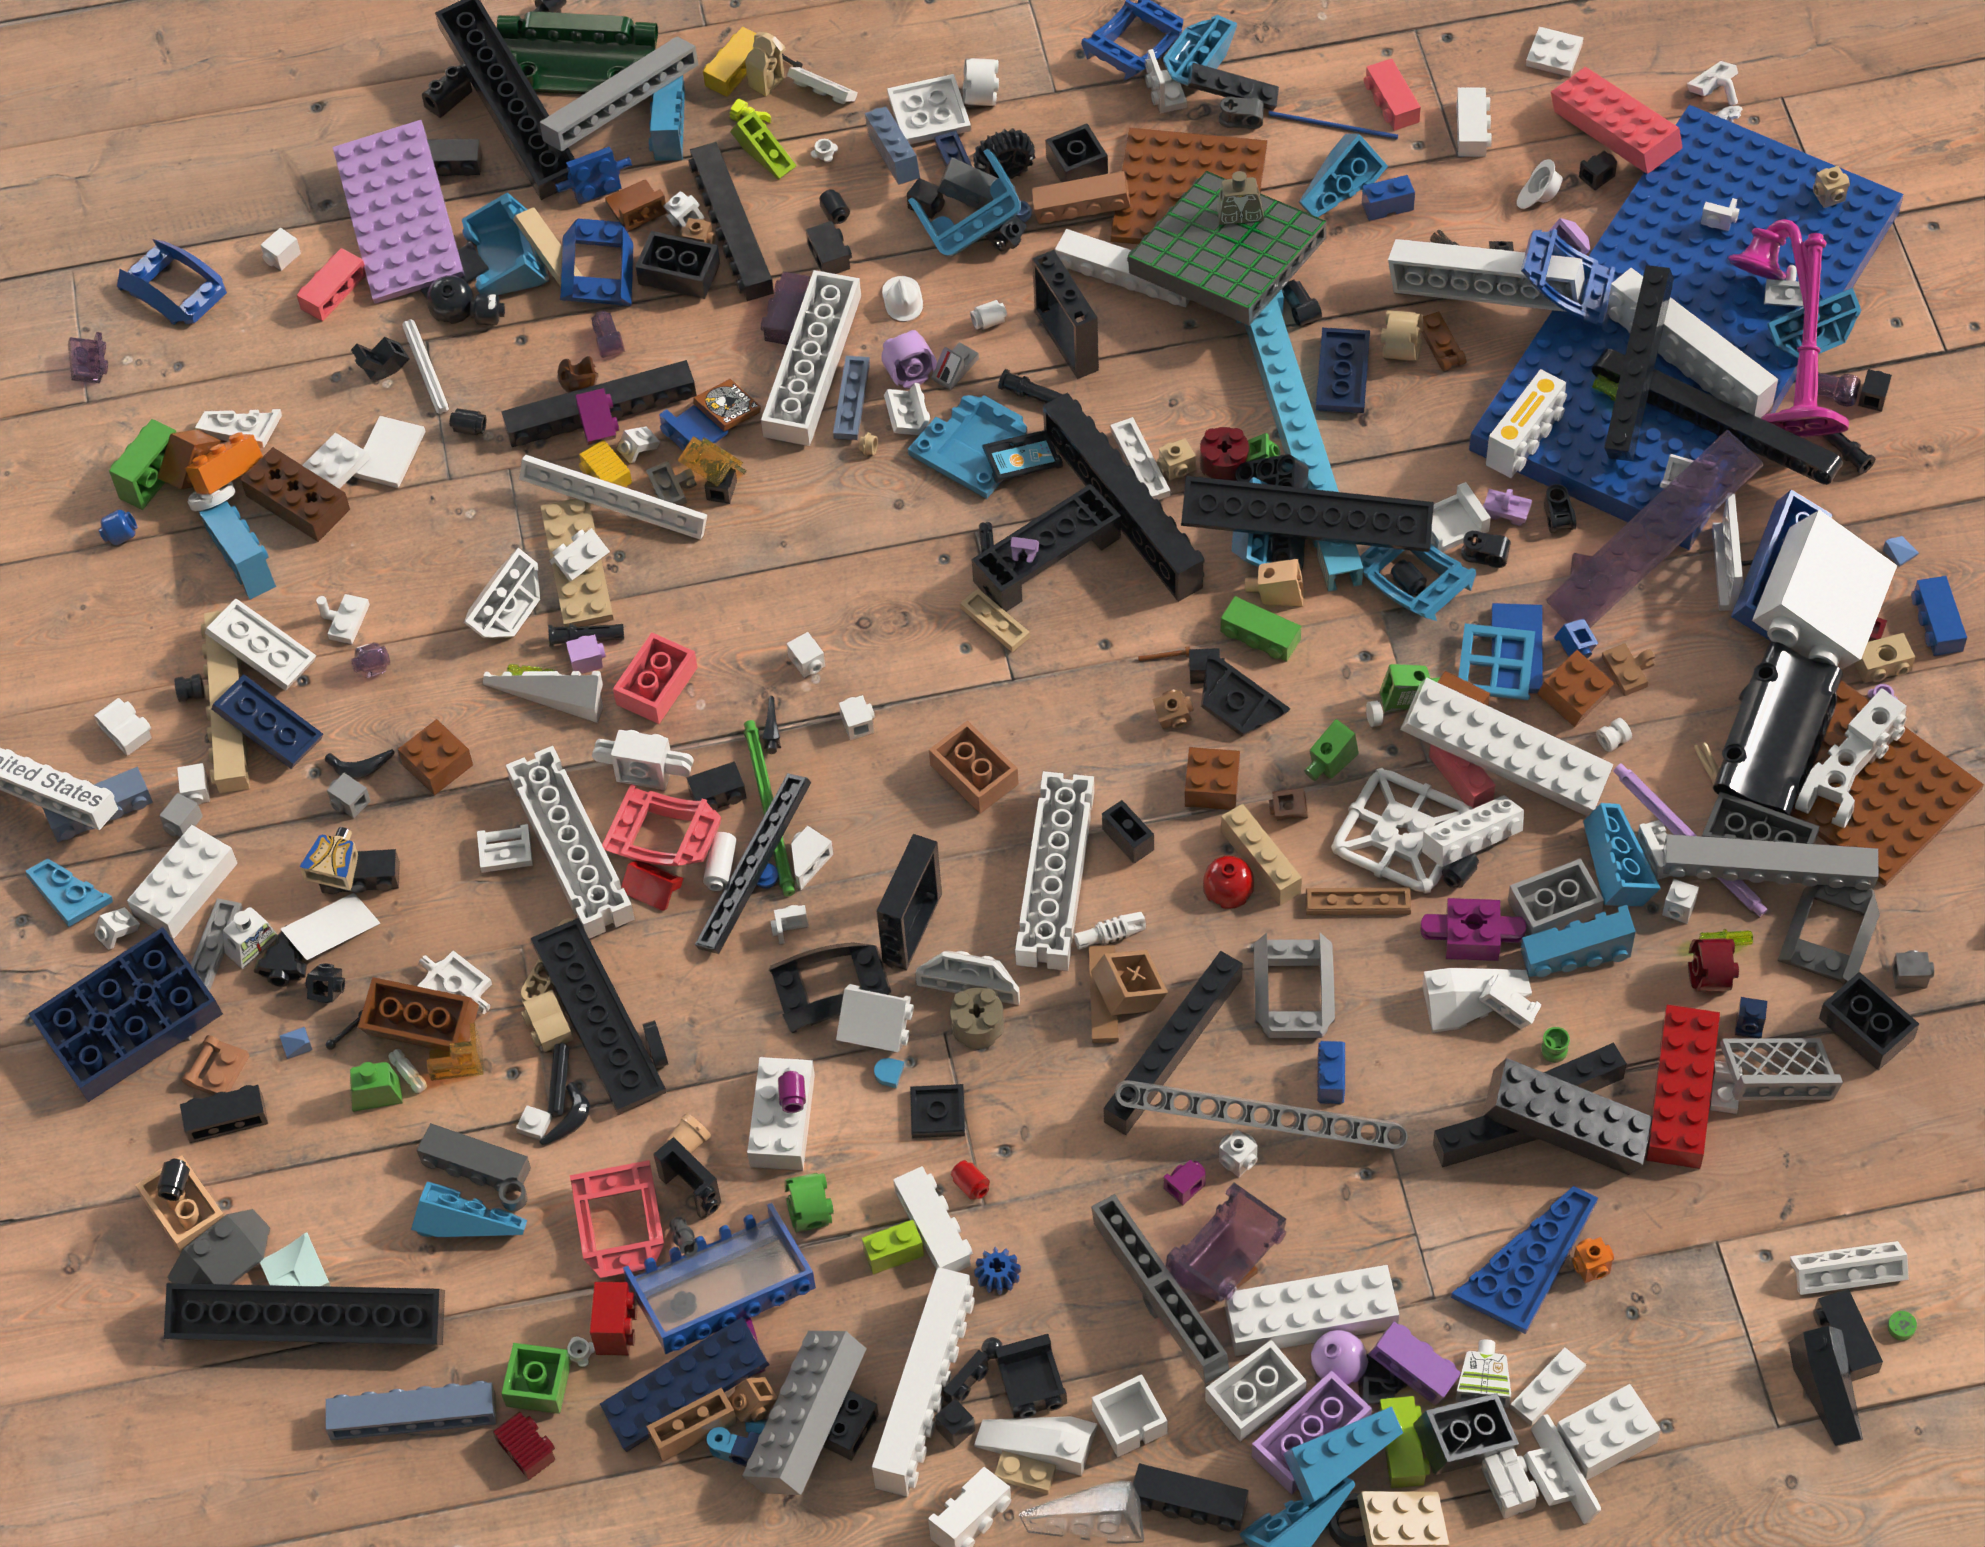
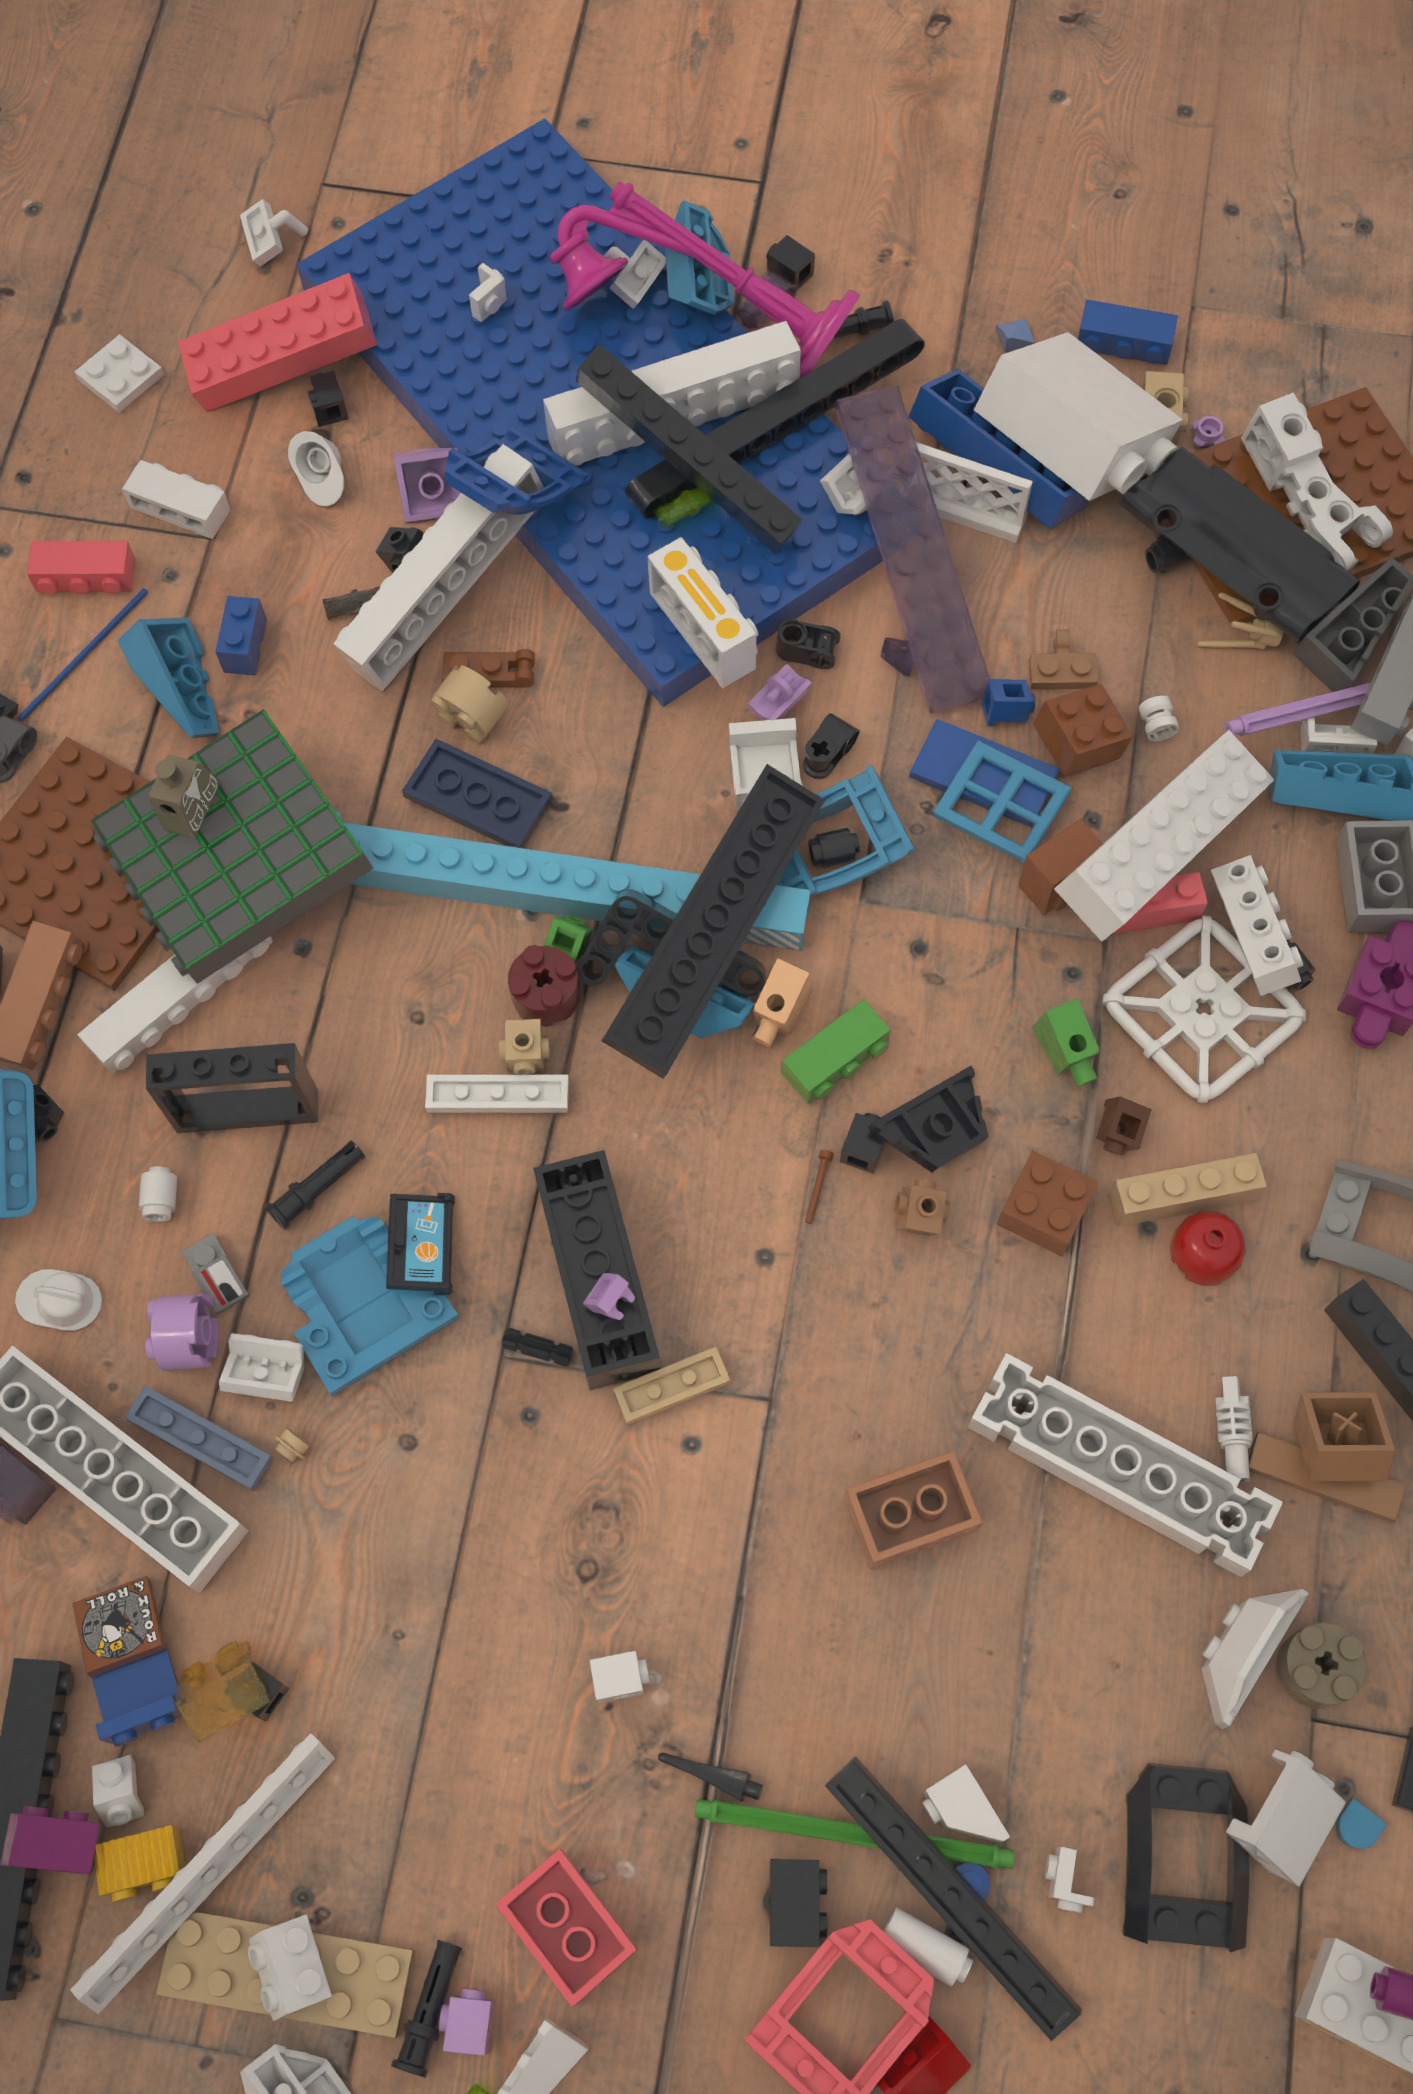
camera: 70 degrees left, 10 degrees up
(642, 759) = (710, 2006): white brick -> none
(668, 485) = (219, 1772): dark grey plate -> none
(857, 717) = (753, 1642): white brick -> none
(909, 902) = (1143, 1693): black window -> none
(1128, 831) = (1096, 1343): black brick -> none
(1142, 517) = (516, 1142): black brick -> none
(1302, 306) = (358, 800): black piece -> none
(1358, 901) = (1288, 1102): medium nougat tile -> none
(1374, 713) = (1020, 969): white tile -> none
(1401, 685) = (1005, 905): bright green torso -> none
(1730, 113) = (320, 237): white plant -> none
(1831, 186) = (509, 171): tan brick -> none

